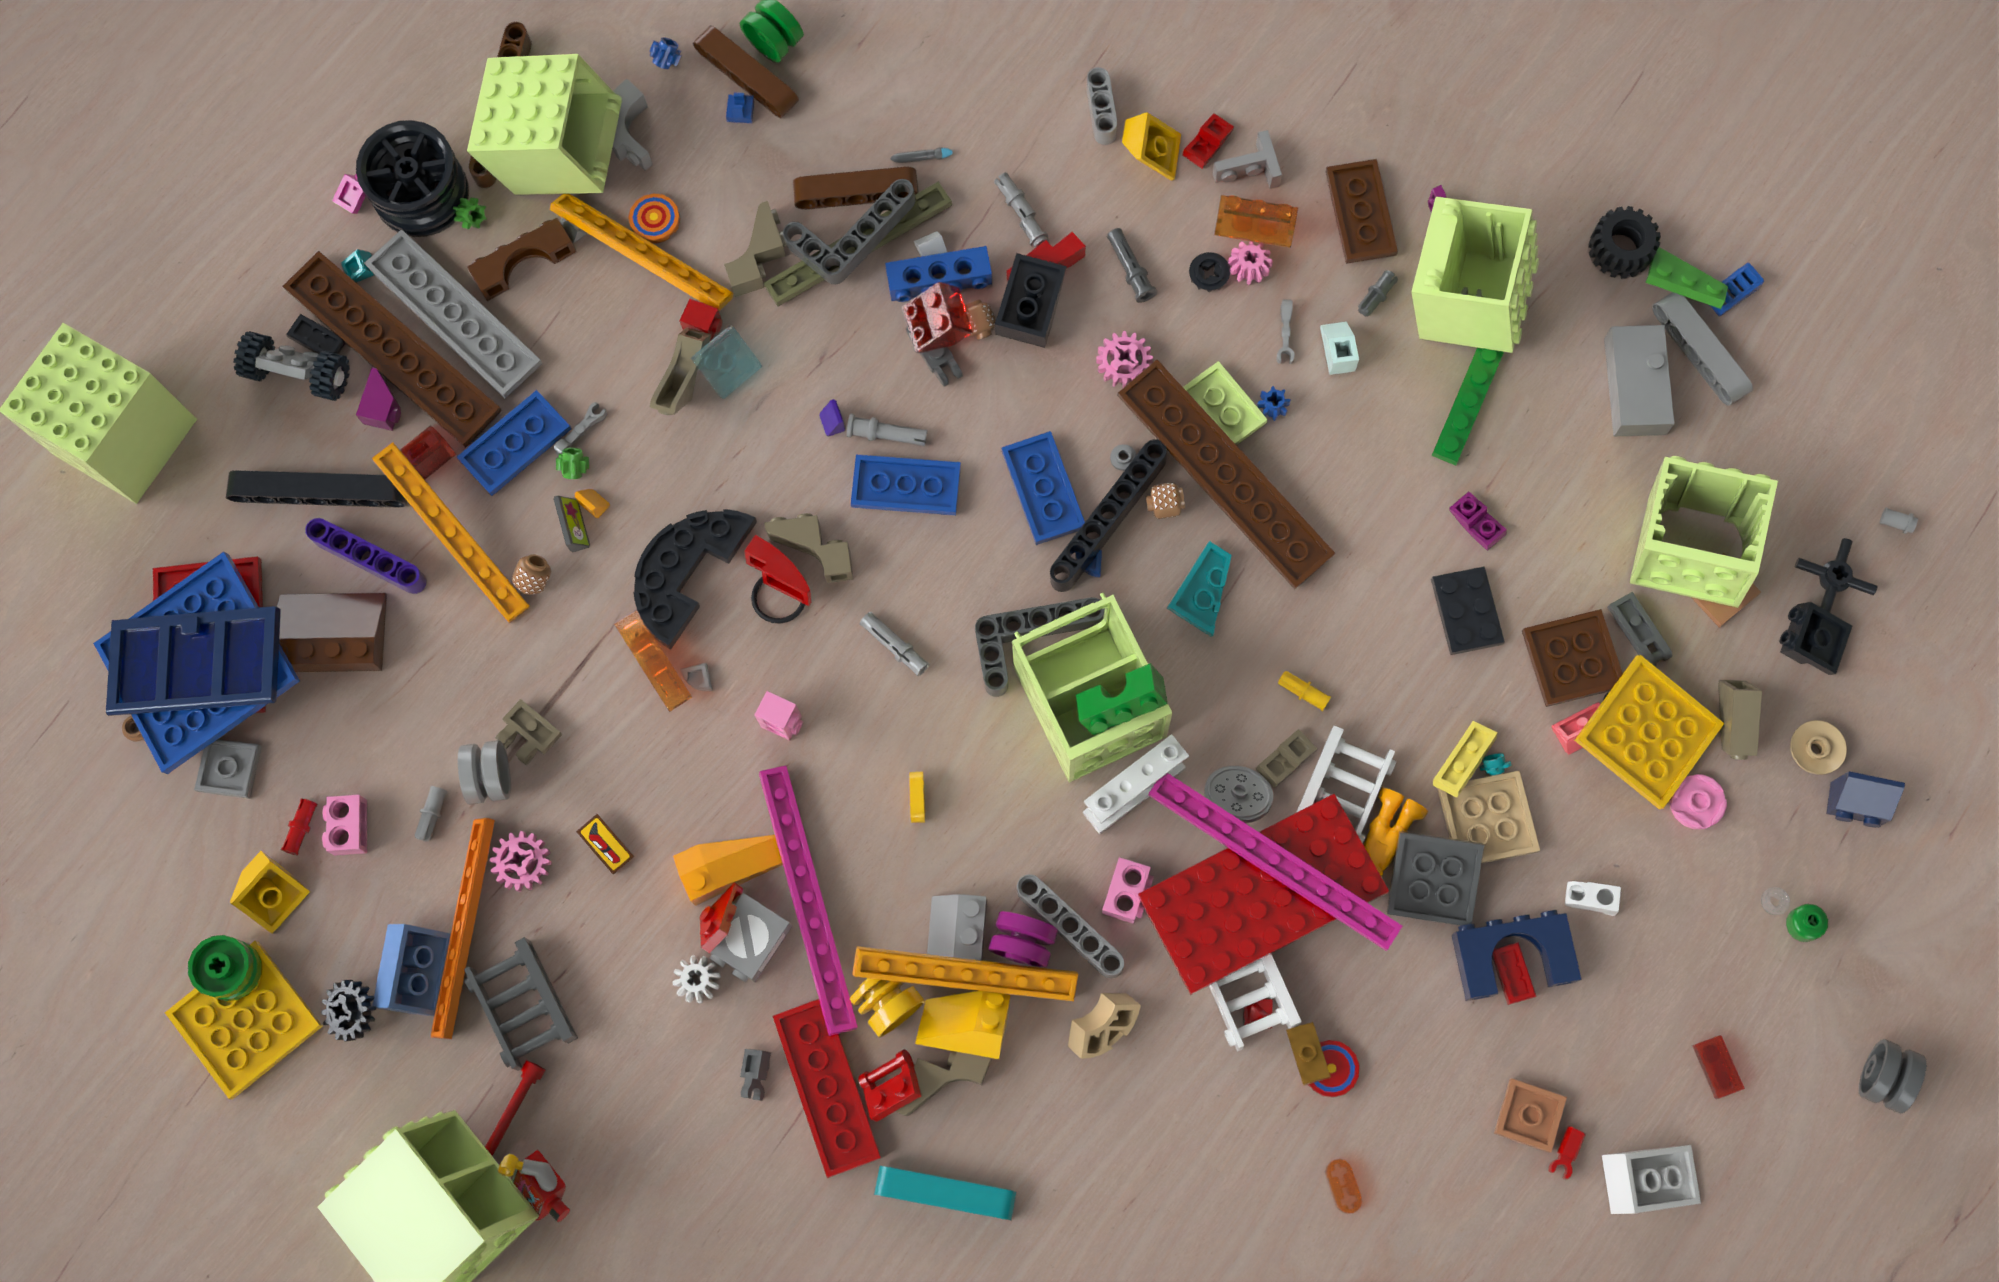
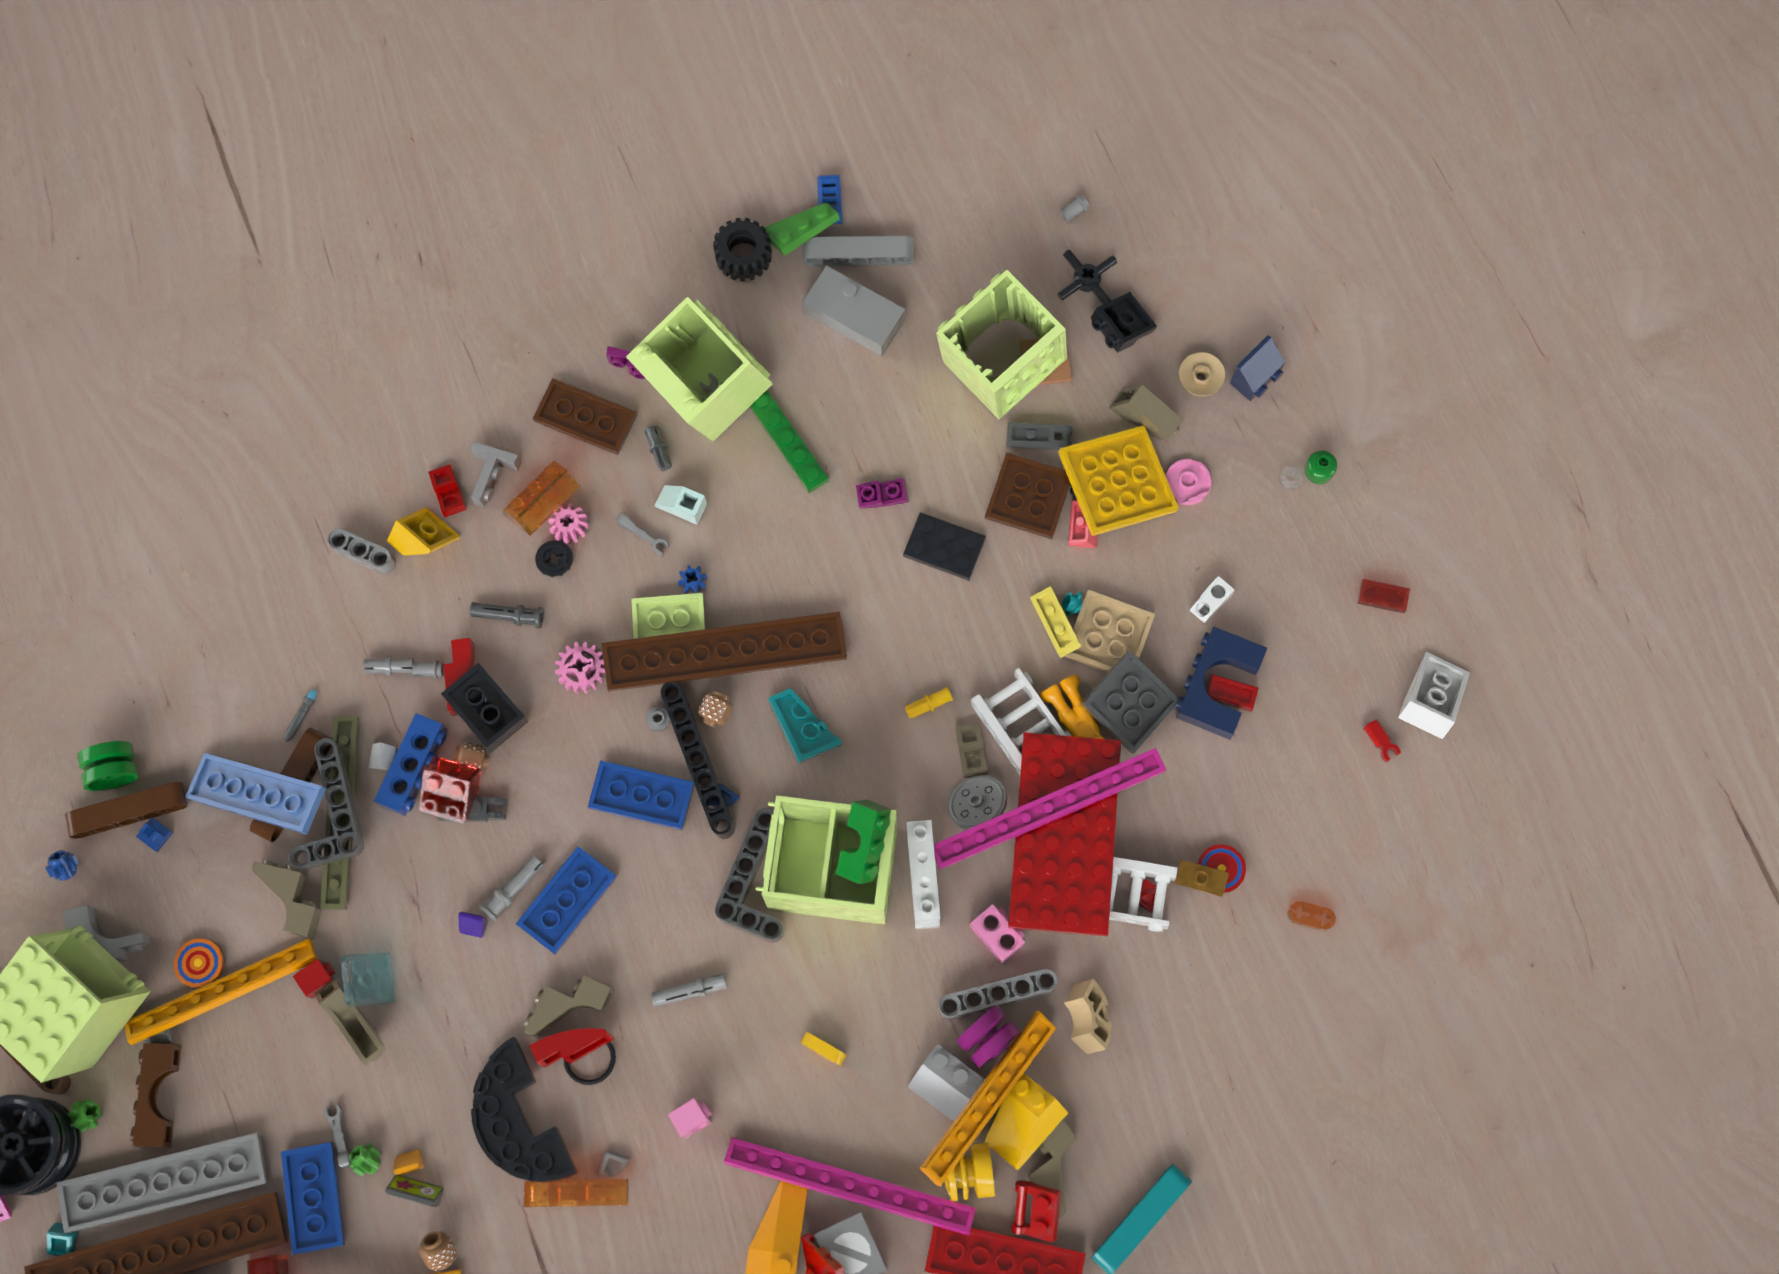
camera: 60 degrees left, 0 degrees up
(826, 162) = (255, 793): none -> medium blue plate
(1530, 1115) = (1340, 748): nougat plate -> none
(1892, 1076) = (1461, 484): dark grey wheel -> none

